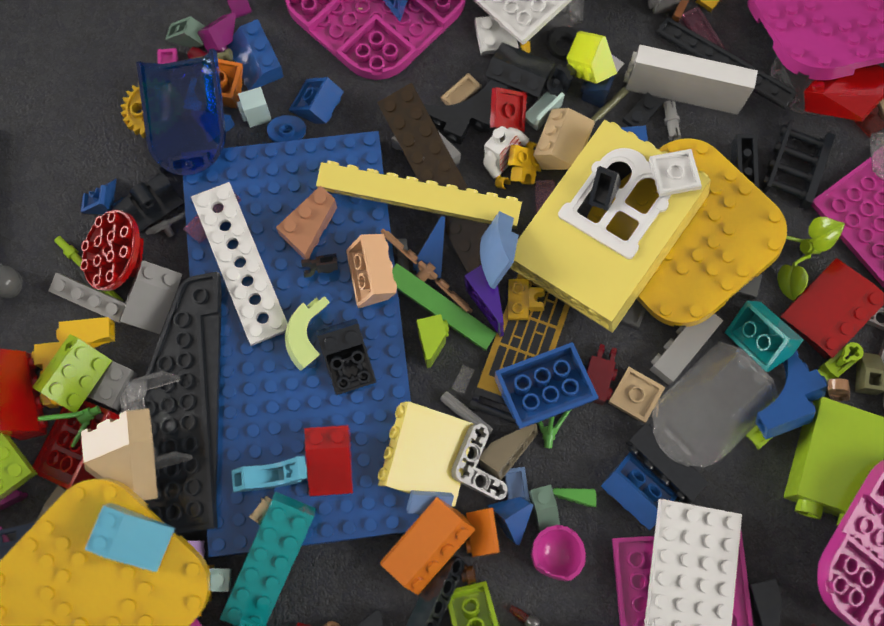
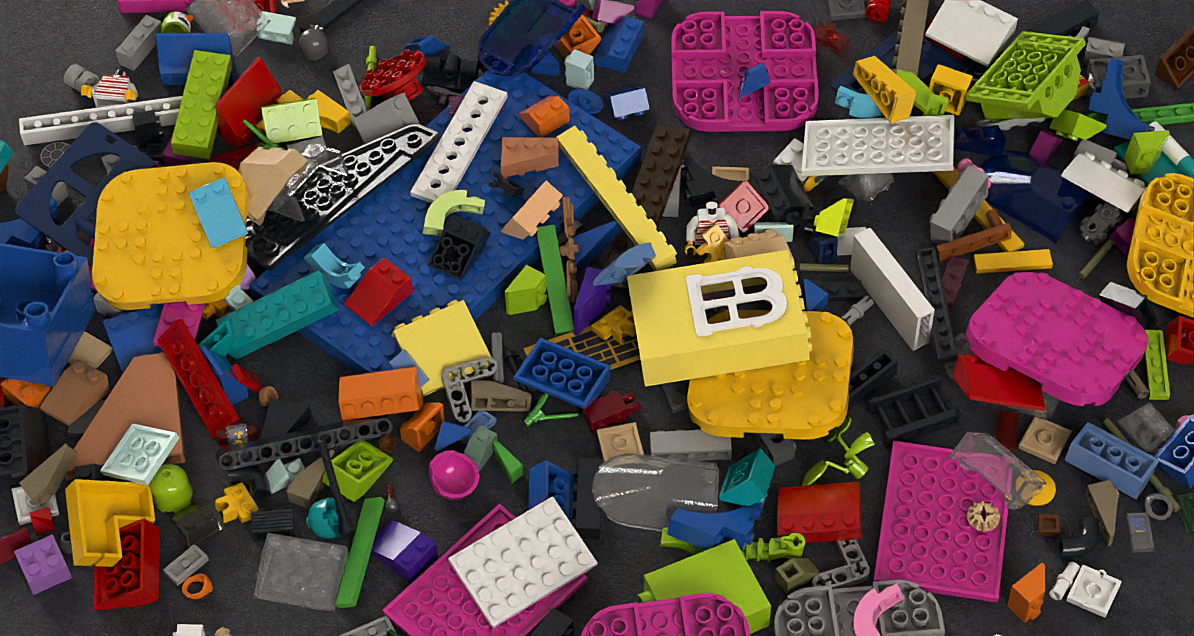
camera: 50 degrees right, 20 degrees down
(279, 172) = (546, 115): none -> orange slope
(463, 379) = (521, 338): clear piece -> none
(604, 188) = (731, 281): black slope -> none
(675, 172) = (787, 309): white tile -> none
(839, 389) = (756, 554): medium nougat beam -> none

